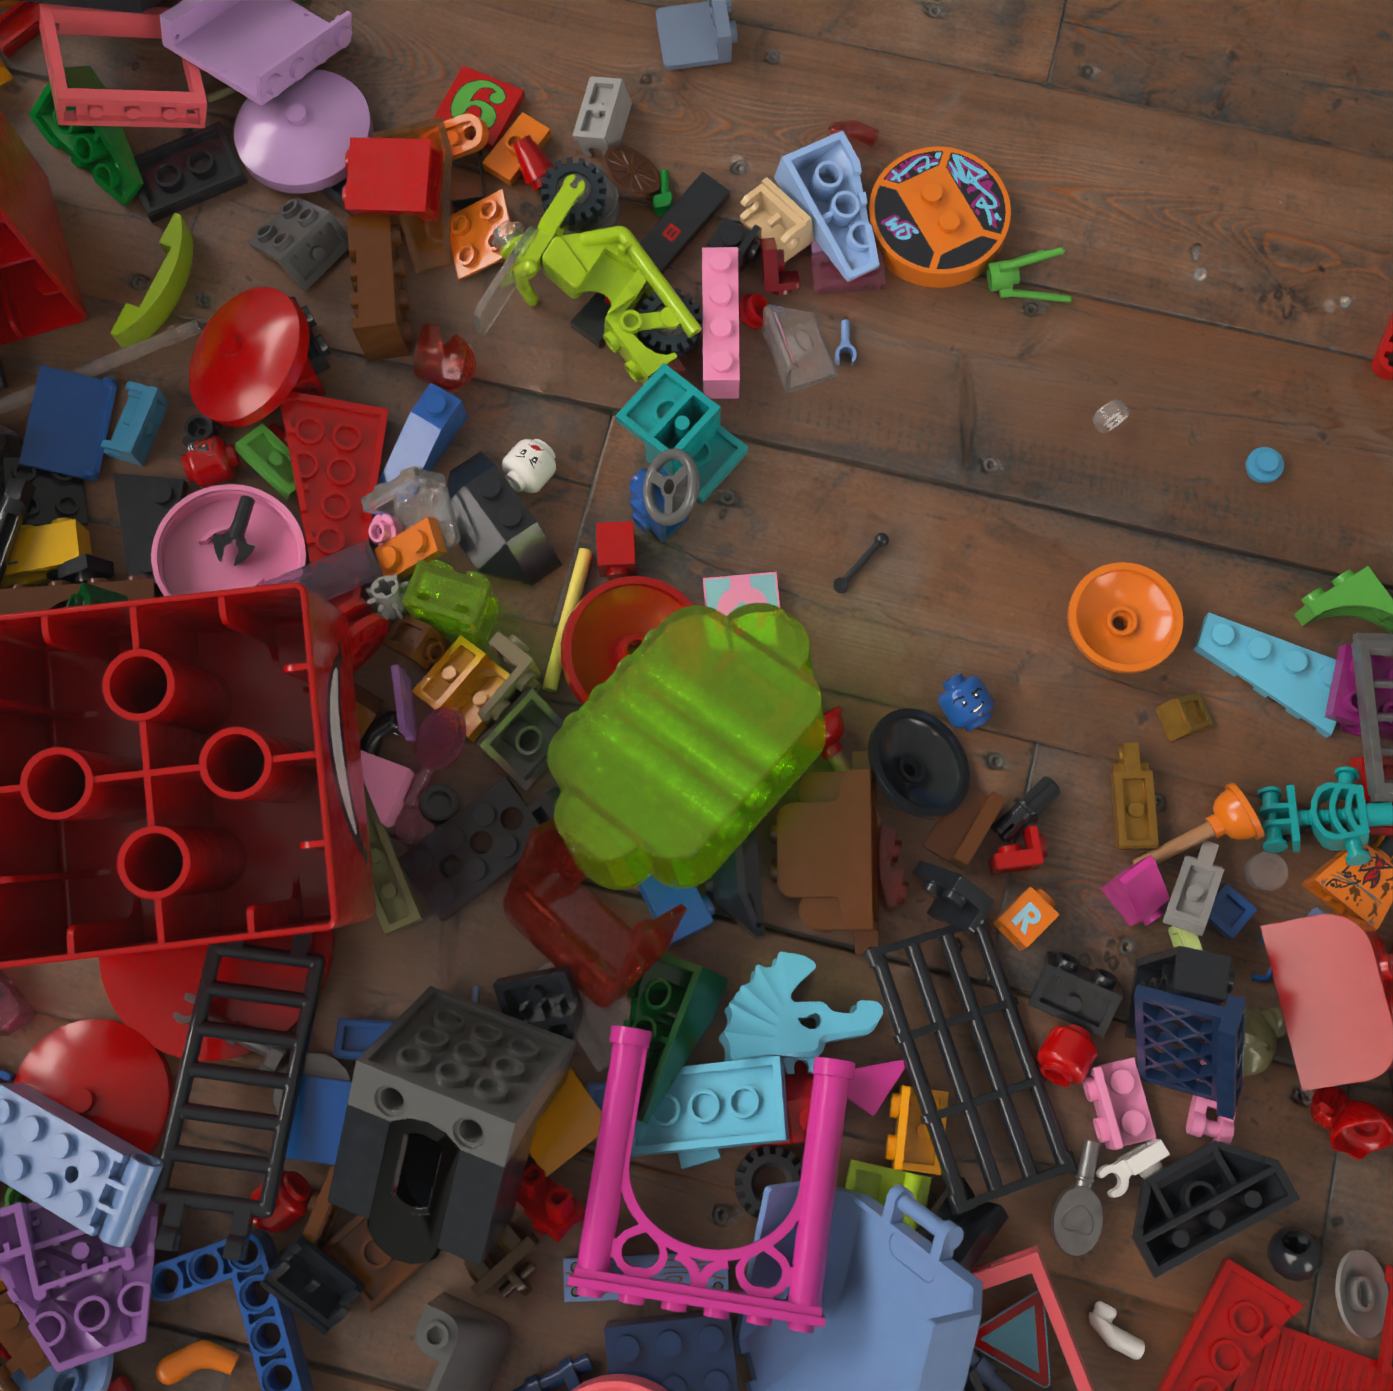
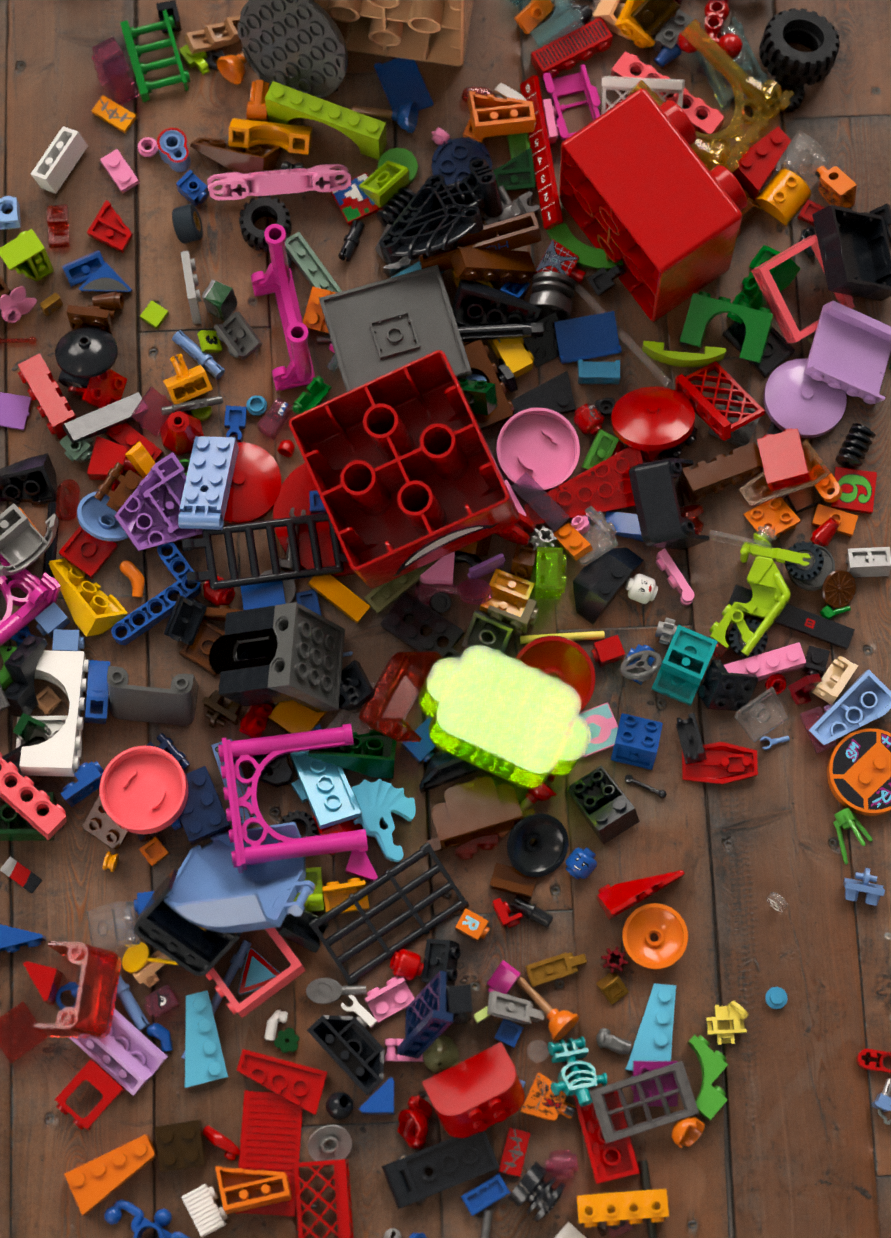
camera: 70 degrees right, 0 degrees up
(60, 994) = (286, 448): none -> red hinge
(69, 51) = (804, 234): none -> black arm
(145, 150) = (704, 309): none -> green arch
(182, 964) = (316, 504): none -> blue tile
(237, 532) = (568, 447): black bar -> none
(264, 267) = (705, 406): none -> red fence
(367, 978) = (340, 596): none -> light orange tile
(401, 381) = (659, 507): none -> black windscreen
(410, 79) = (853, 446): none -> black piece
(528, 408) = (675, 577): none -> bright pink plate
(614, 447) = (666, 630): none -> light grey gear
(649, 1182) = (279, 767): none -> black hinge
(741, 383) = (726, 690): none -> black bracket
(784, 550) = (636, 741): none -> blue bracket
(807, 463) = (690, 739): none -> black hinge
(857, 437) = (723, 764): none -> red piece
(874, 637) = (603, 804): none -> black slope
(956, 898) = (467, 885): black bracket -> none
(1044, 647) = (627, 894): none -> red wedge
(1115, 276) = (872, 890): none -> medium blue hips
(1148, 688) = (615, 953): none -> dark red gear
(1158, 1324) = (289, 1034): none -> dark green plant
(1283, 555) = (724, 1029): none -> light yellow piece
(1285, 739) = (612, 1042): none -> dark grey arm
(1315, 1175) = (381, 1101): none -> blue slope

